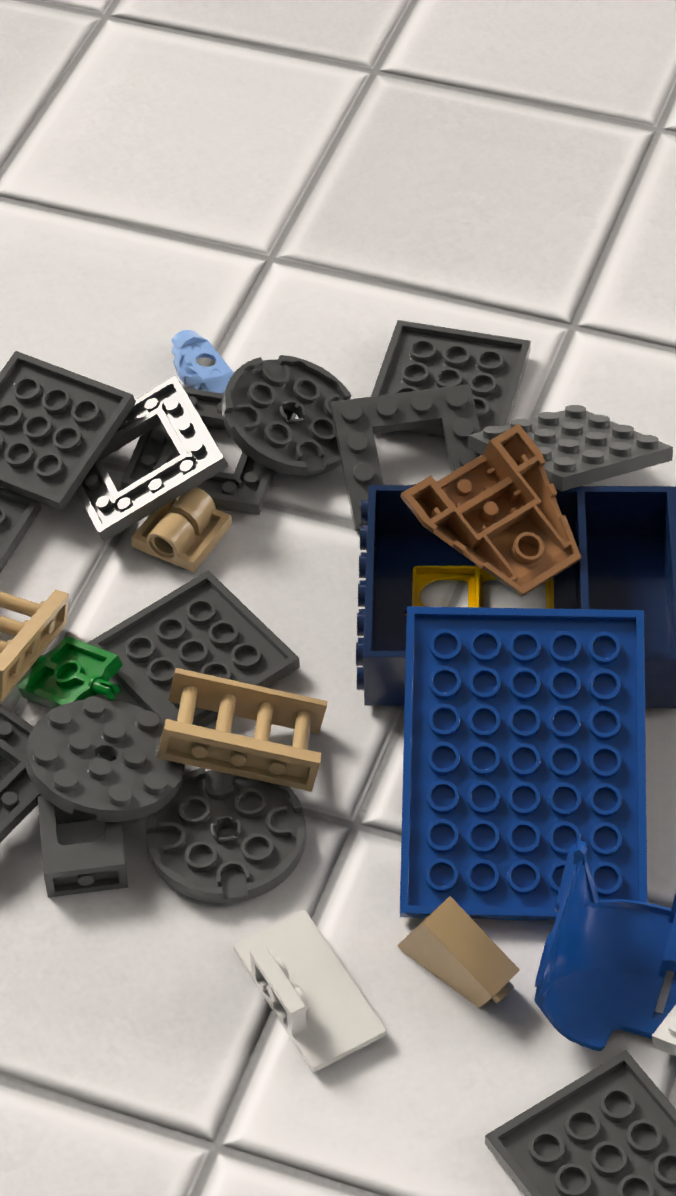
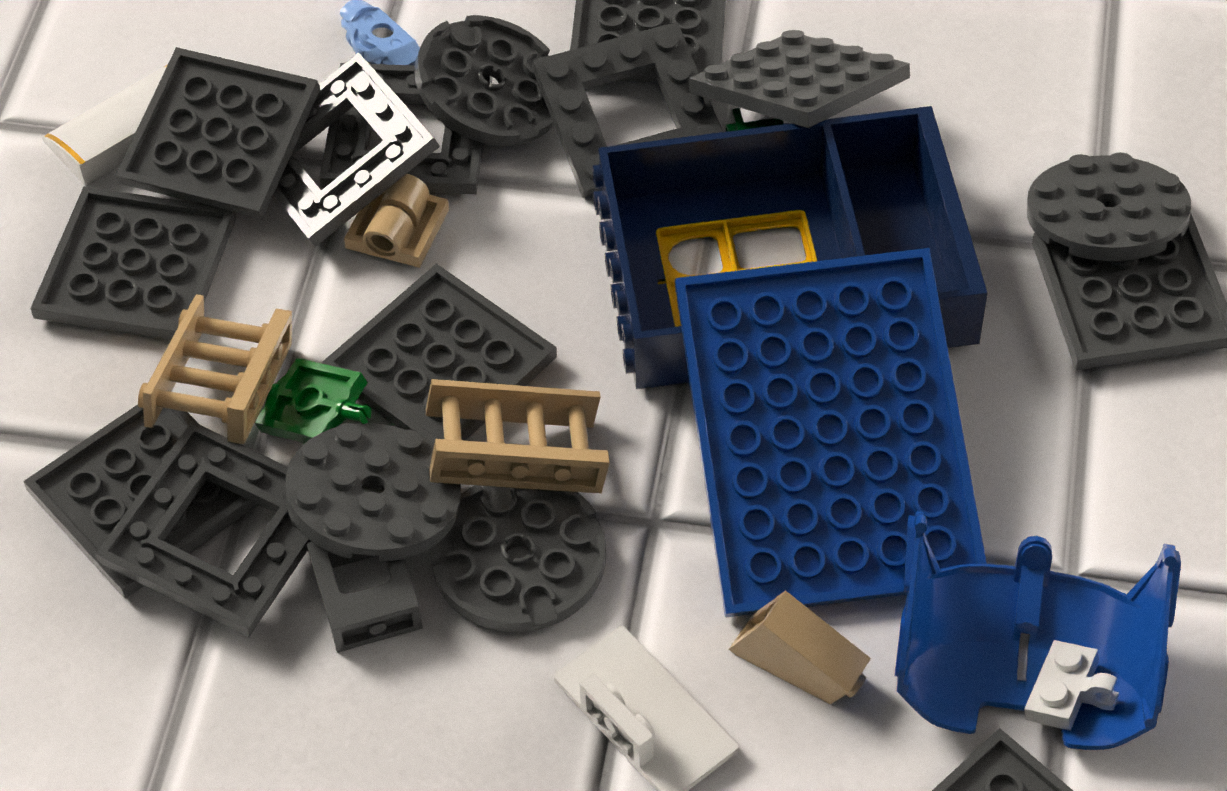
camera: 10 degrees left, 5 degrees up
(500, 513) = (751, 161): medium nougat wedge -> none

